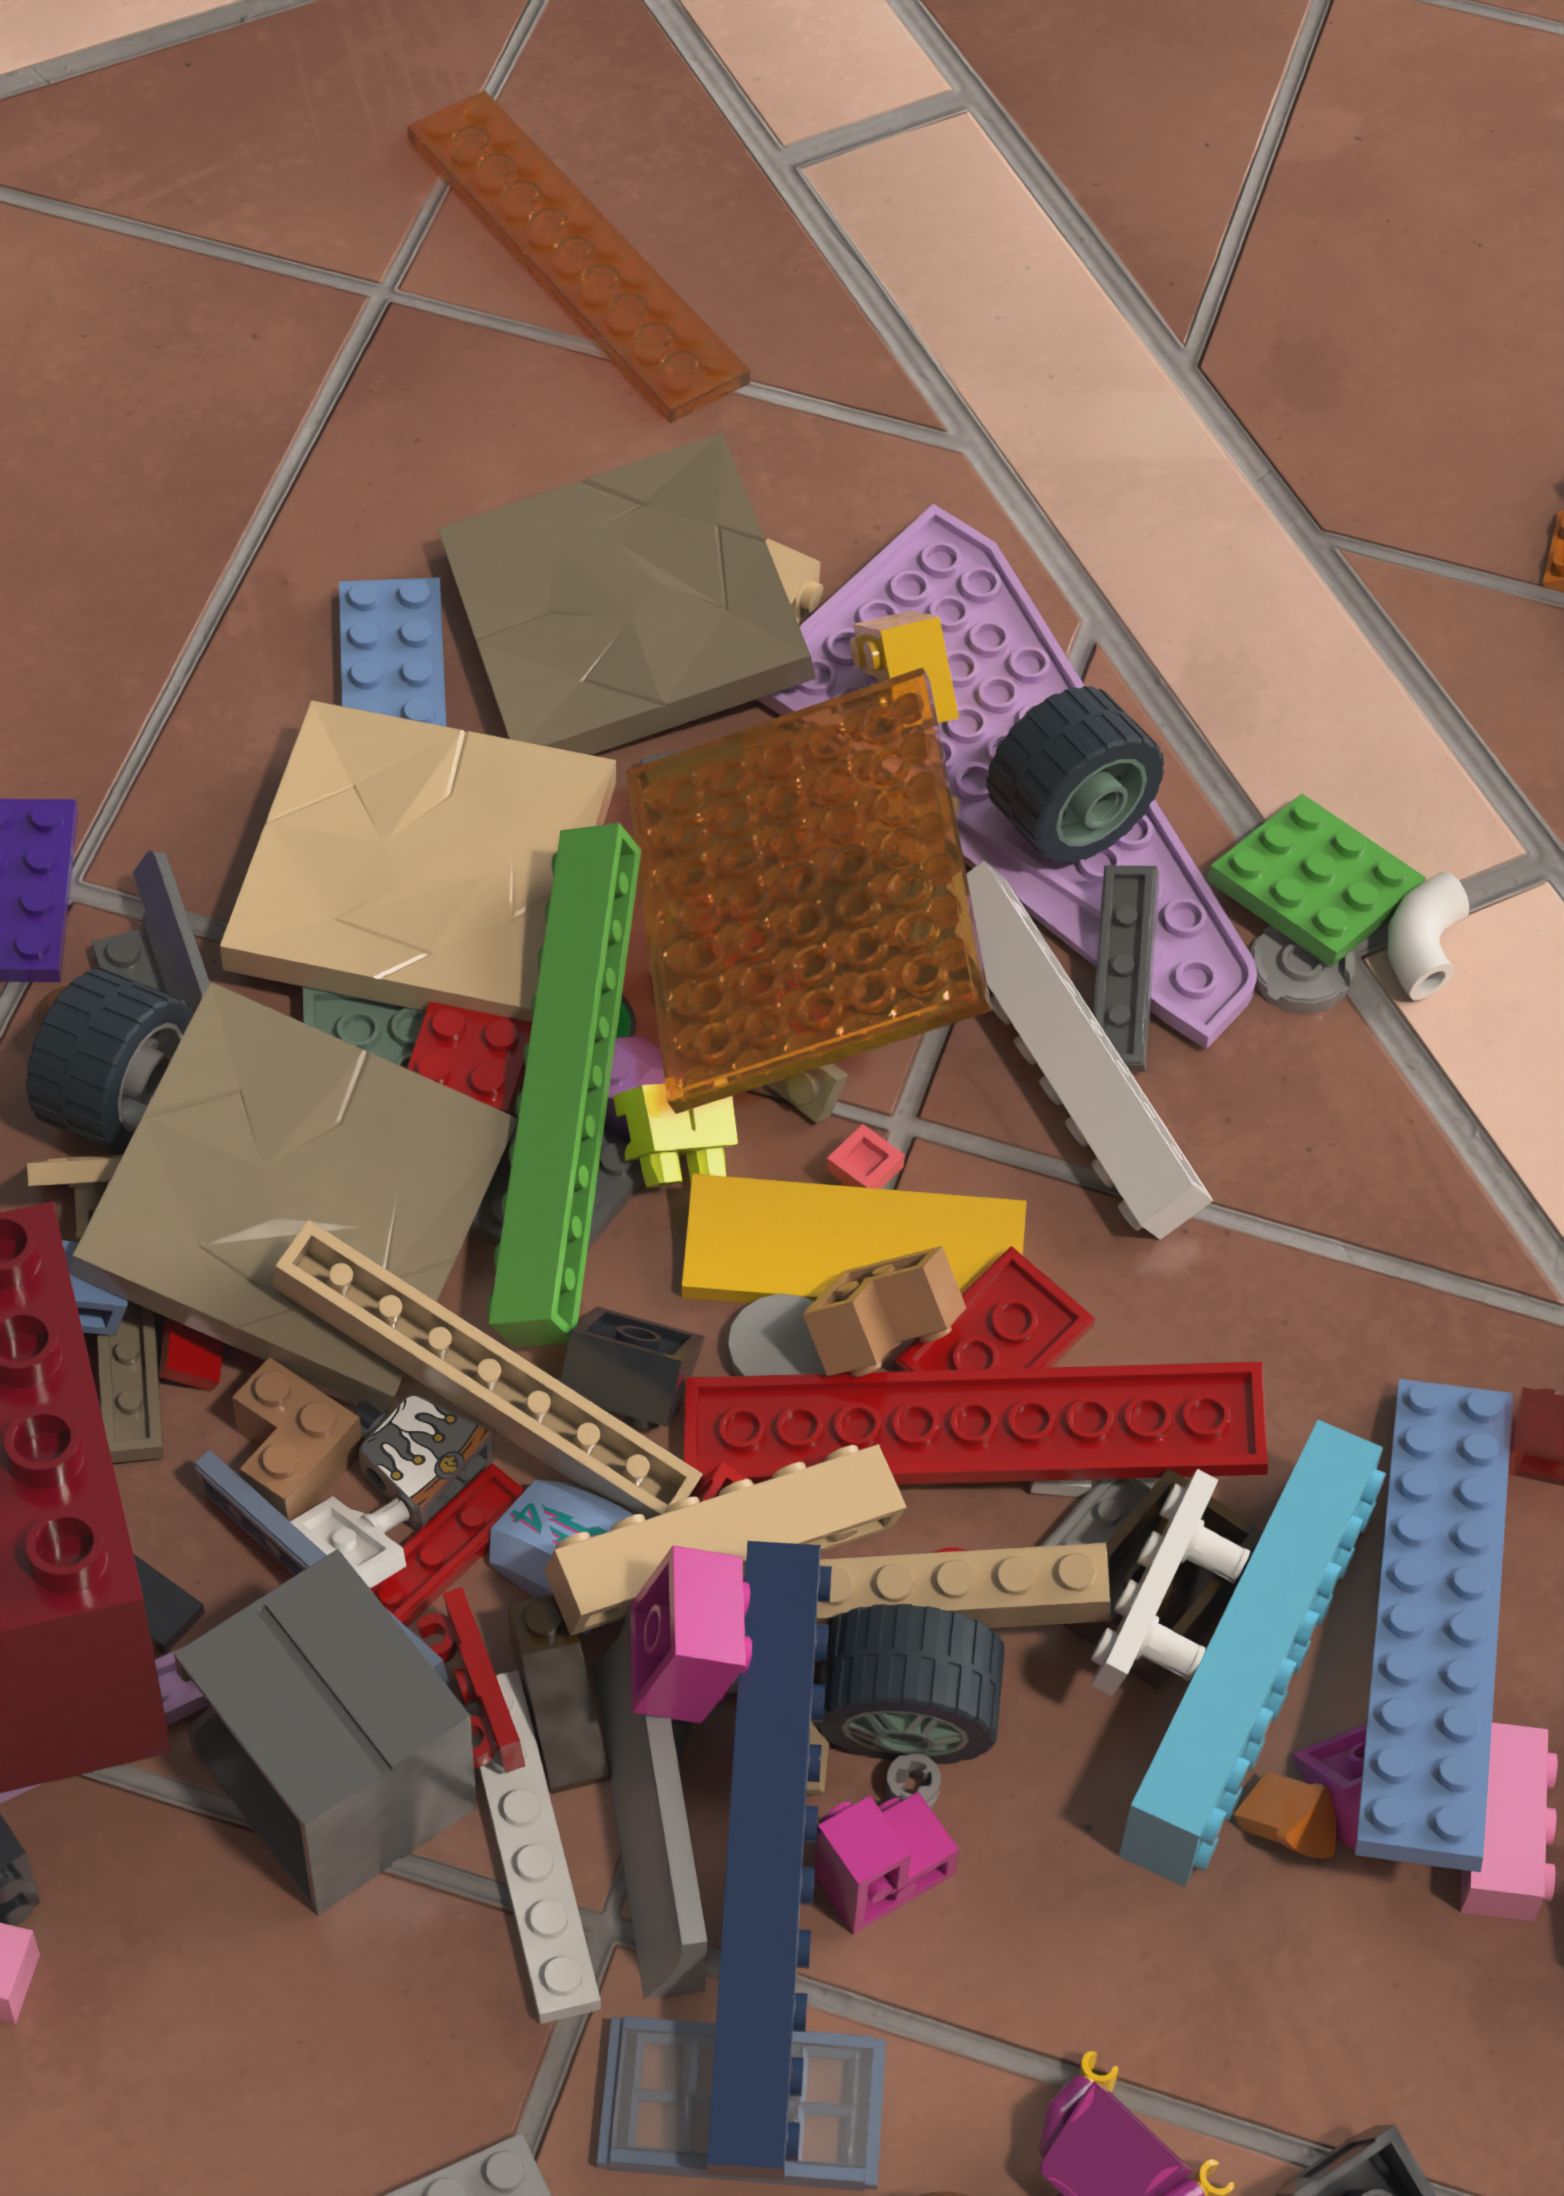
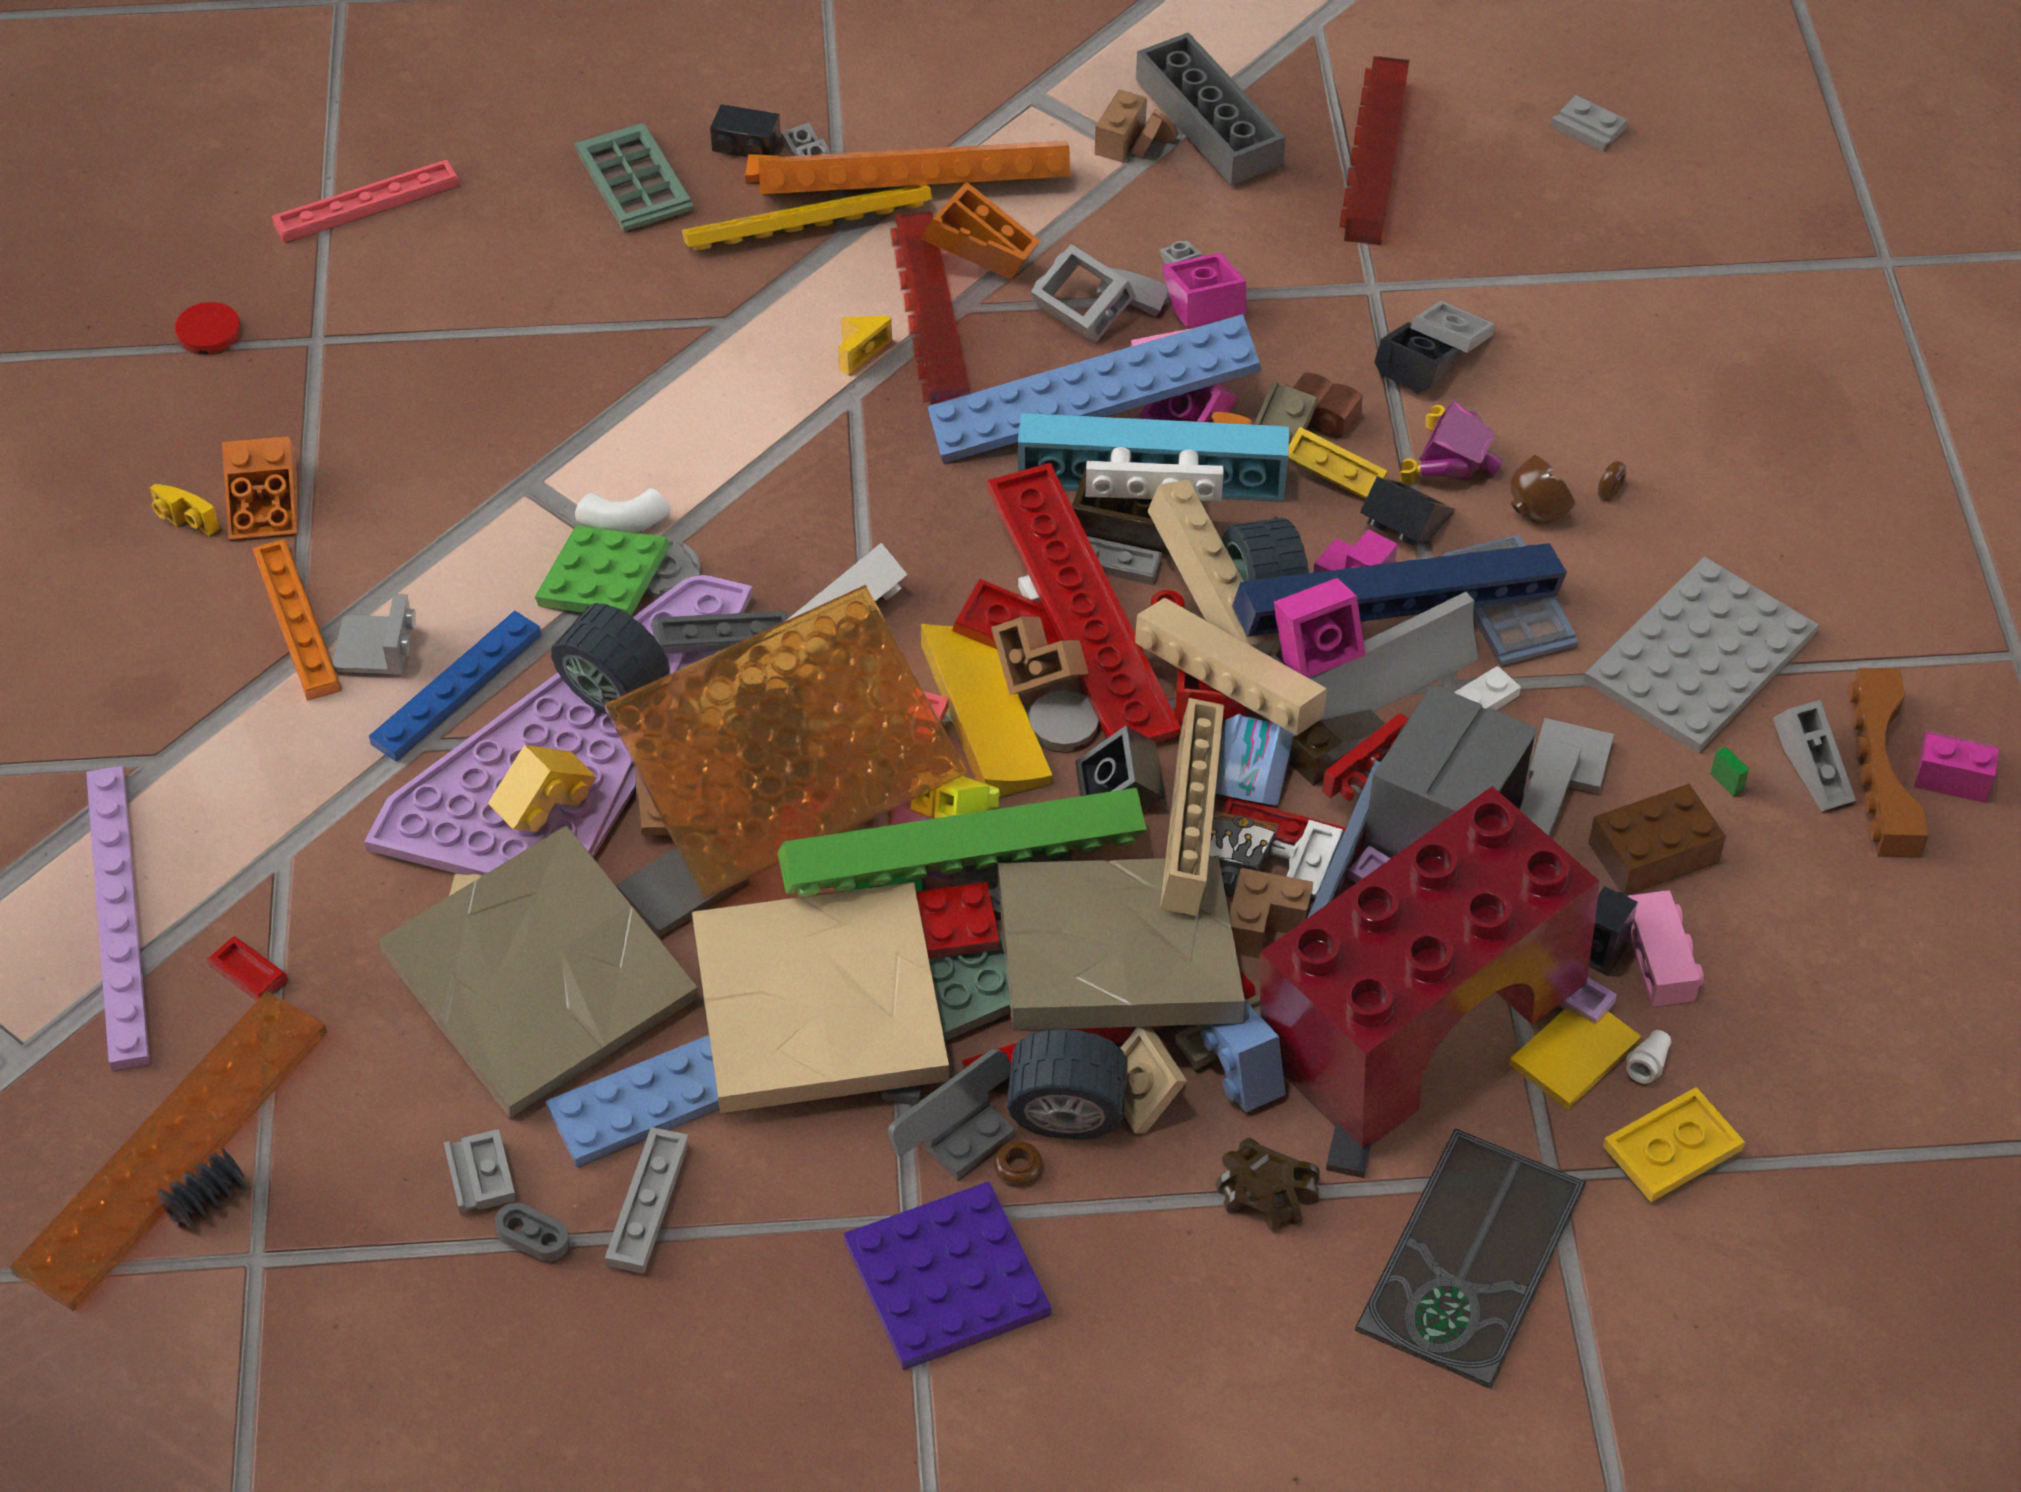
camera: 110 degrees left, 5 degrees down
(127, 2054) = (1656, 839): none -> reddish brown brick
(241, 631) = (647, 1200): none -> light grey plate
(256, 516) = (535, 1231): none -> dark grey plate
(292, 1924) = (1550, 783): none -> light grey tile
(371, 2030) = (1594, 752): none -> light grey tile
(374, 492) = (480, 1171): none -> light grey plate
(486, 250) = (202, 1189): none -> black piece
(799, 368) = (247, 968): none -> red tile
(948, 274) = (117, 919): none -> lavender plate
(1002, 2020) = (1404, 510): none -> black slope
(1146, 1947) = (1333, 463): none -> yellow plate
(1180, 677) = (454, 686): none -> blue plate
(1279, 1903) = (1287, 408): none -> dark tan plate
(1286, 604) = (376, 642): none -> light grey bracket
(1304, 1997) = (1336, 406): none -> copper brick
(1376, 543) = (296, 619): none -> orange tile

